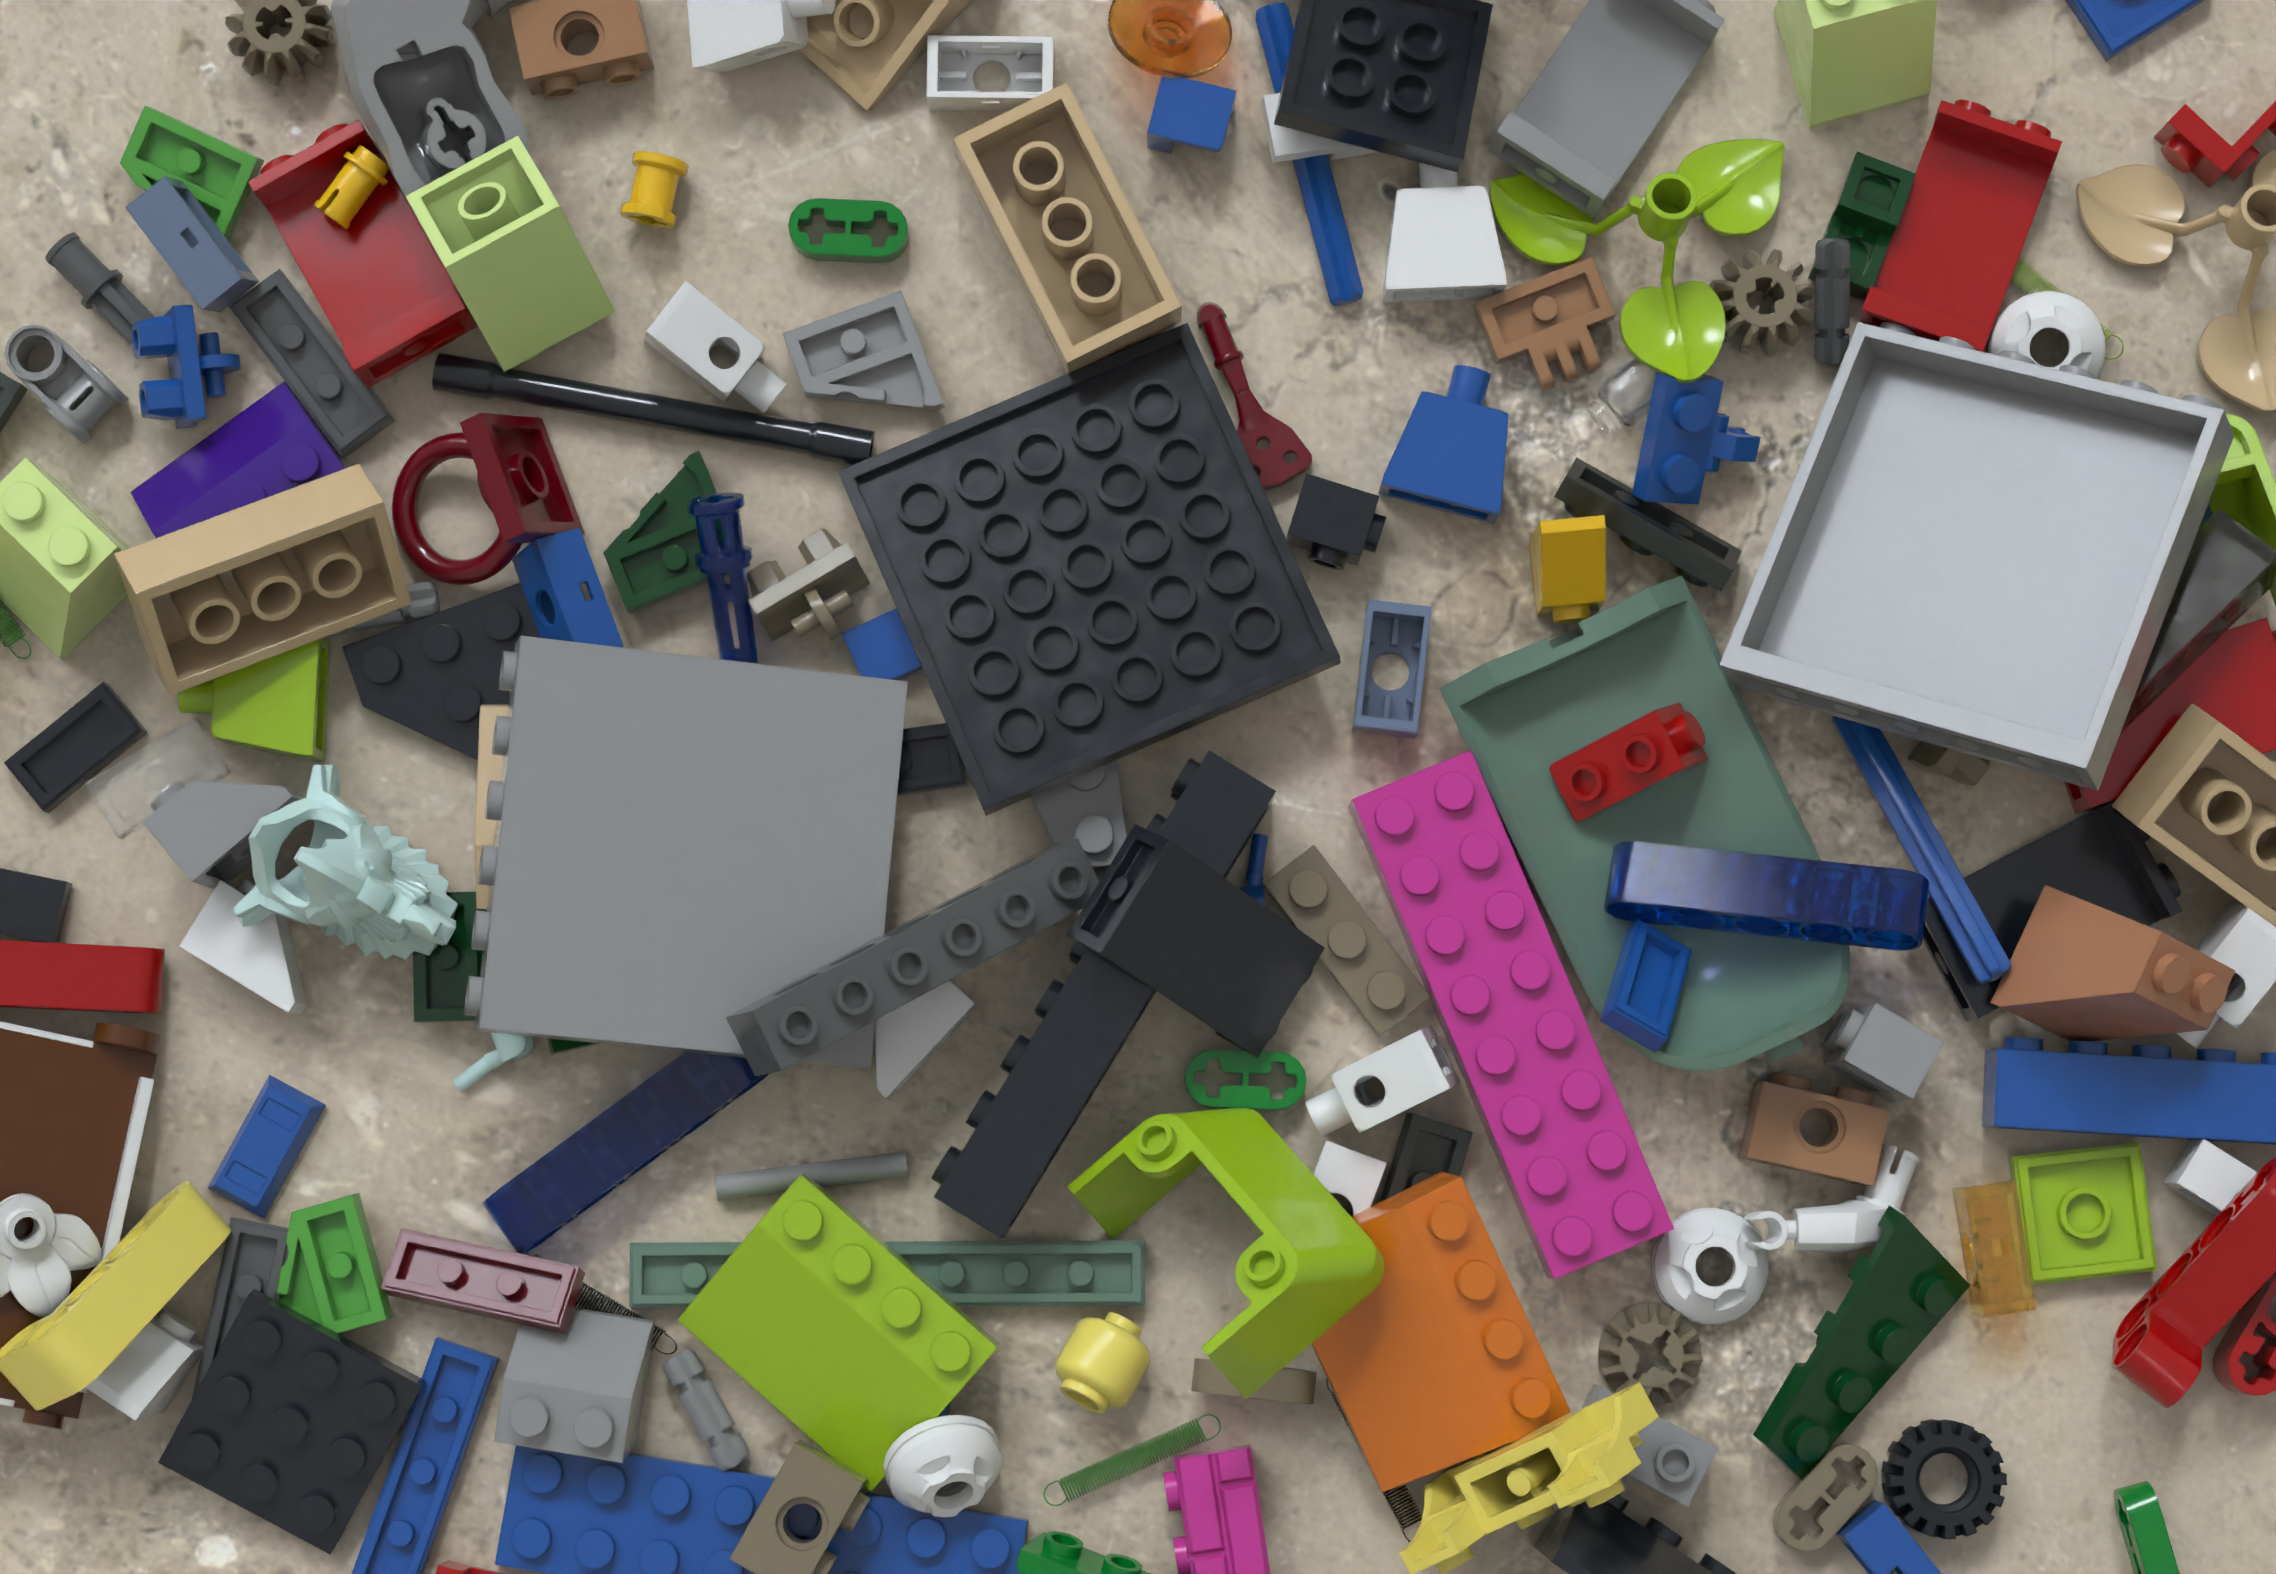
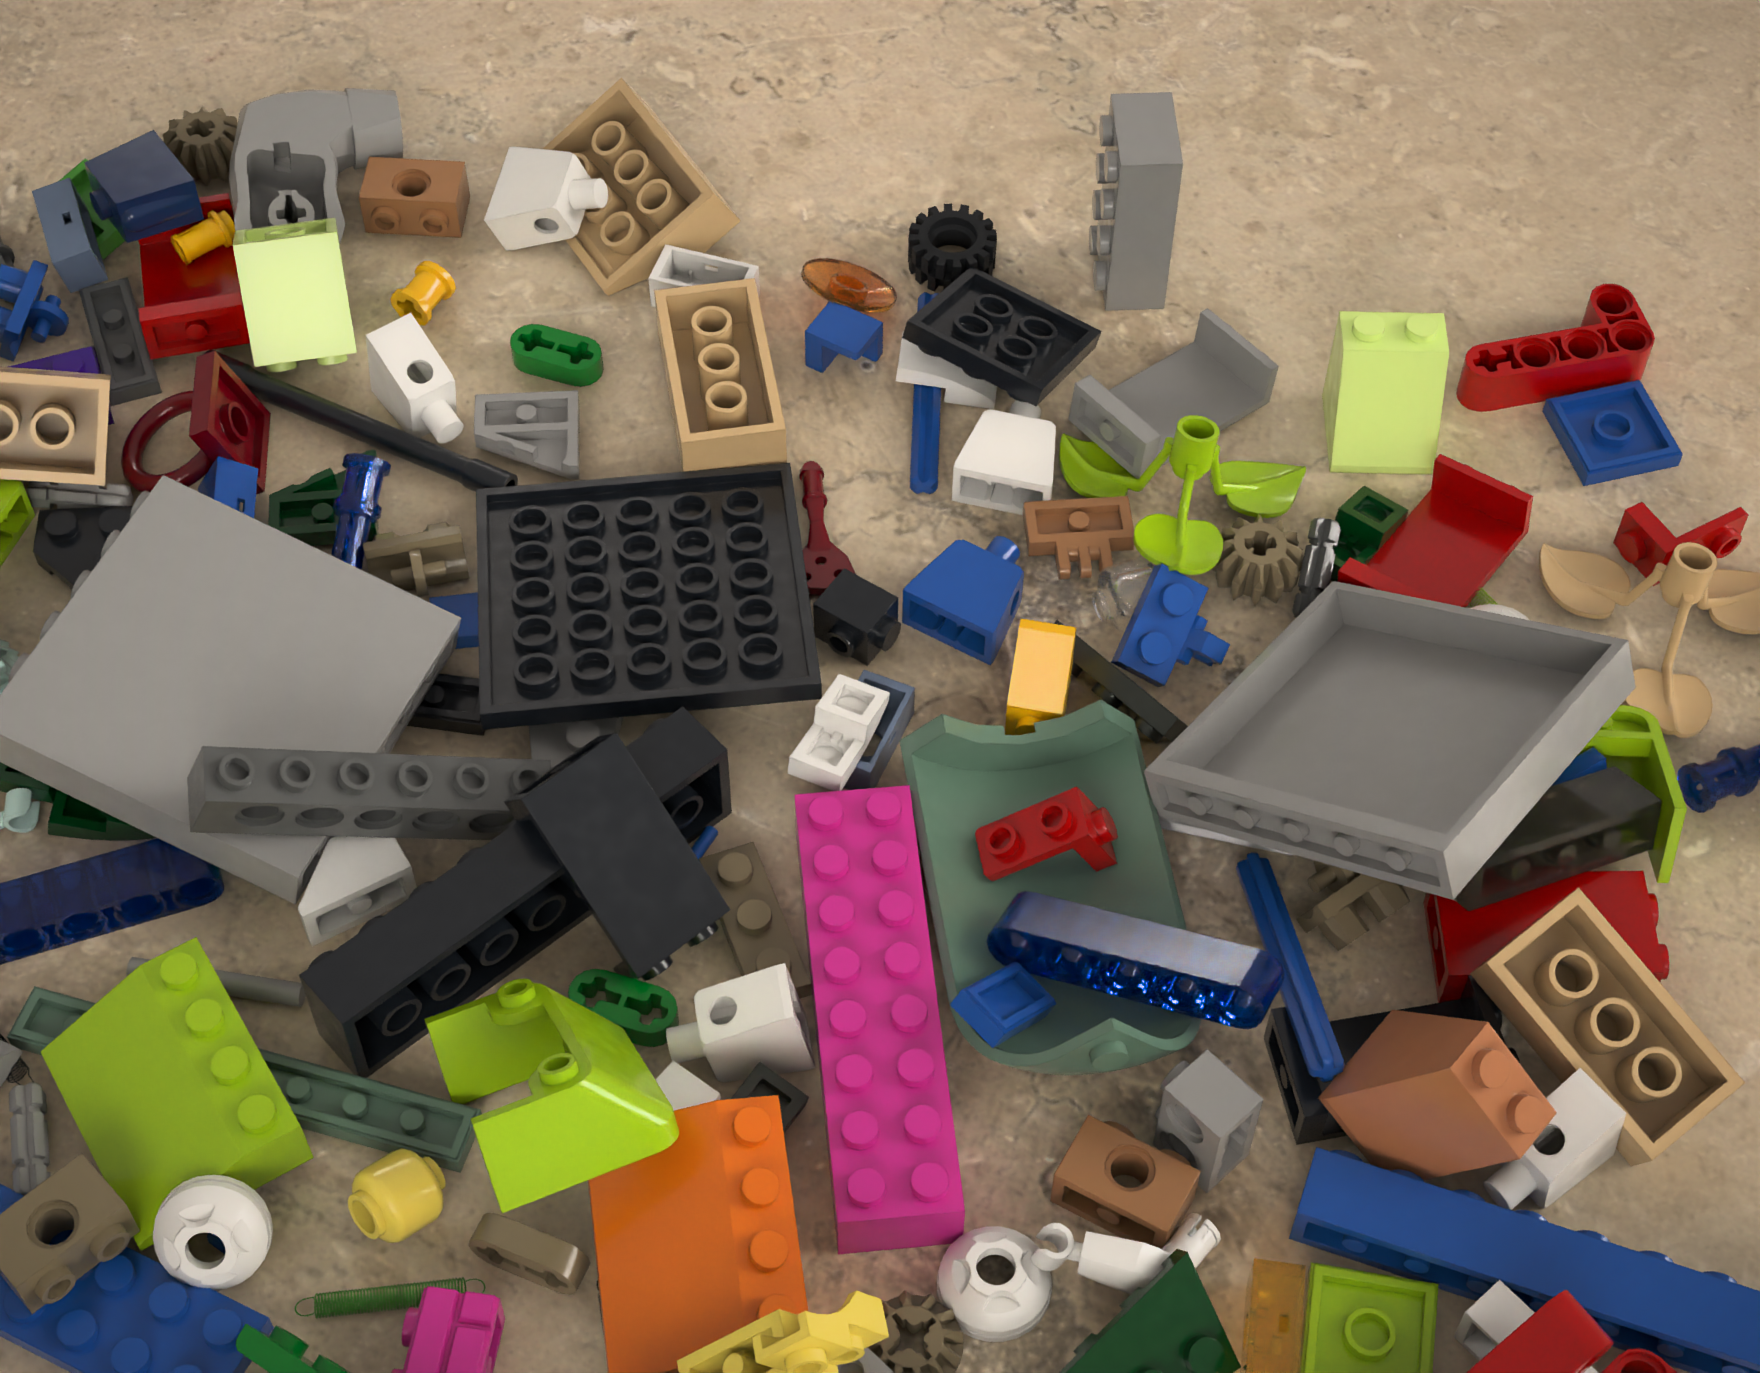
camera: 15 degrees right, 30 degrees down
(262, 165) = (143, 188): none -> dark blue torso
(1372, 700) = (840, 733): none -> white slope

